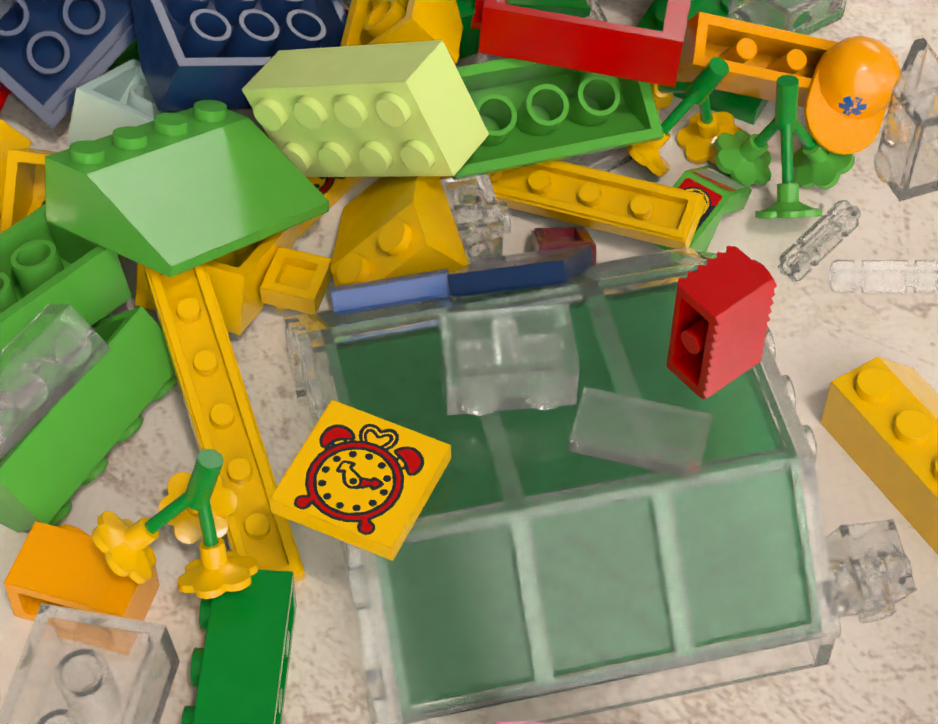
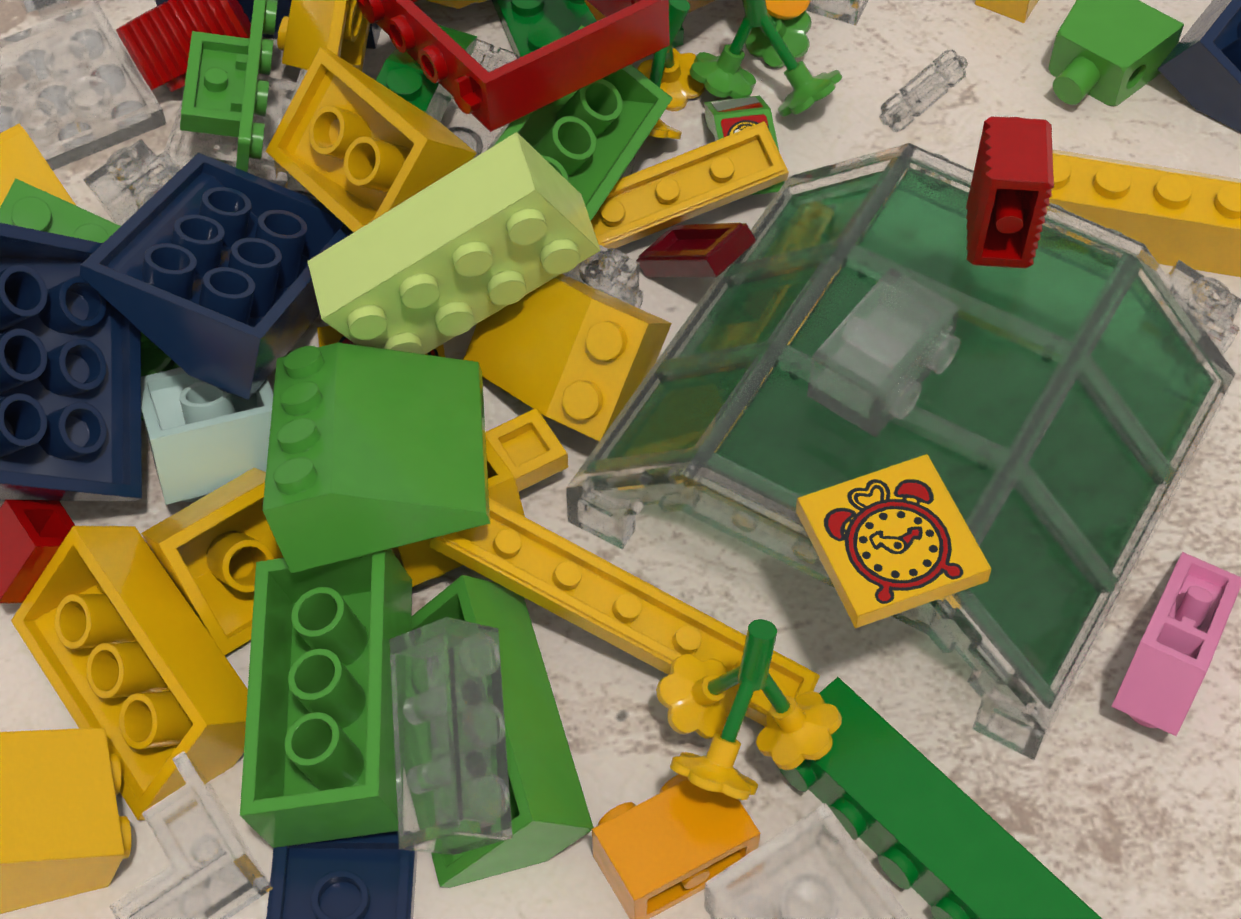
camera: 45 degrees left, 5 degrees up
(390, 292) = (653, 387): tile -> none
(520, 271) = (737, 285): dark blue tile -> none
(640, 432) = (1028, 328): clear tile -> none
(819, 240) = (849, 100): clear axle -> none

